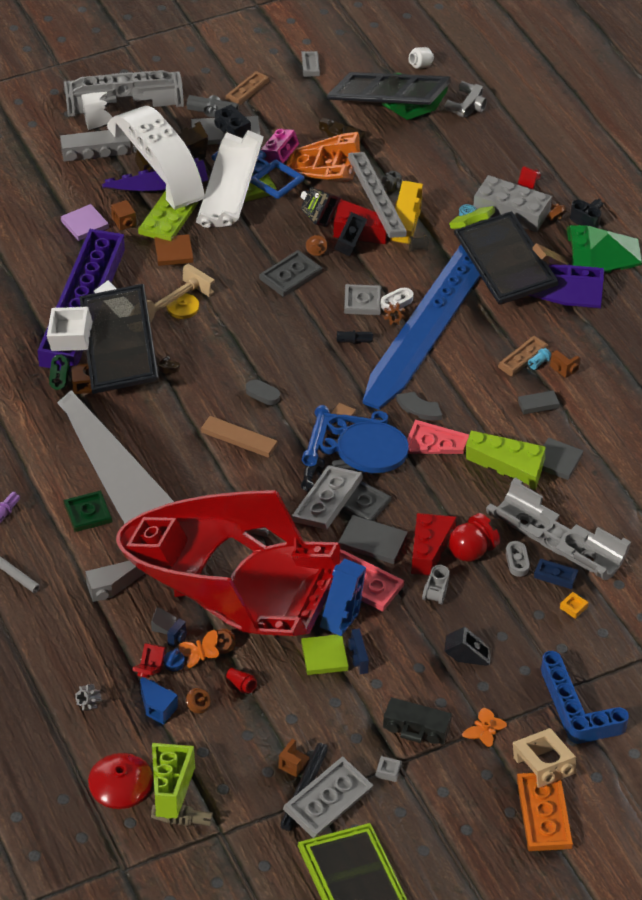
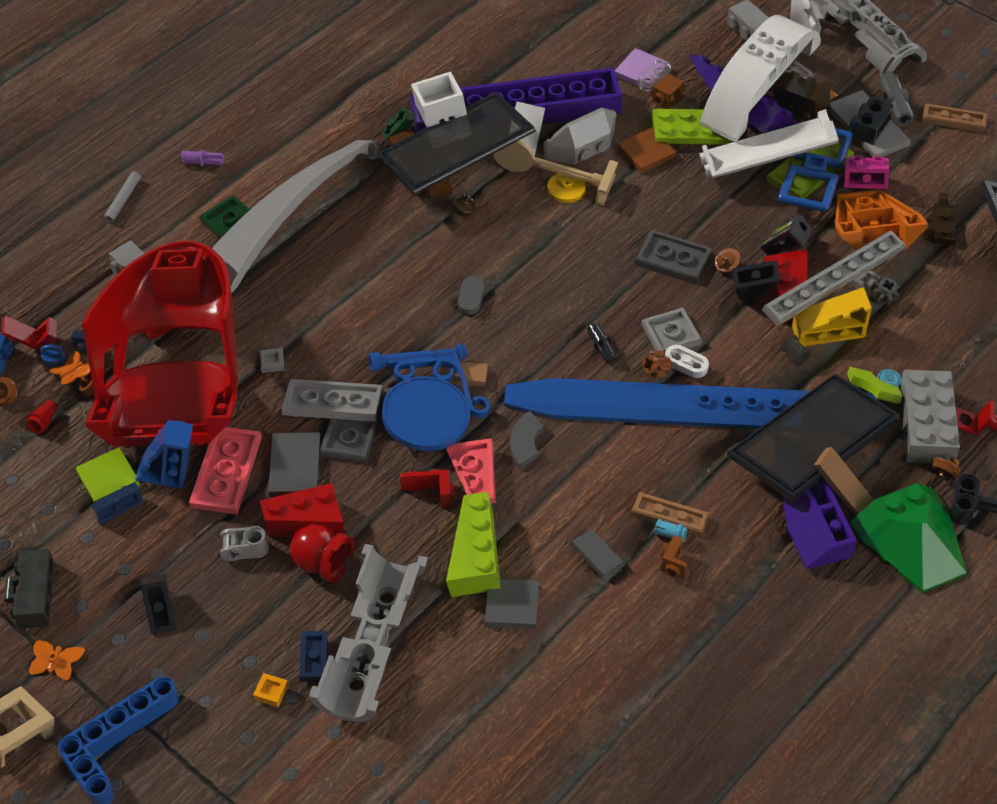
camera: 70 degrees right, 5 degrees up
(105, 214) = (653, 74): none -> clear plate
(146, 271) = (582, 137): none -> light grey wedge
(239, 436) = (393, 299): medium nougat tile -> none
(308, 474) = (366, 374): black arm -> none
(440, 459) = (430, 480): none -> red bracket
(518, 562) = (320, 609): light grey plate -> none

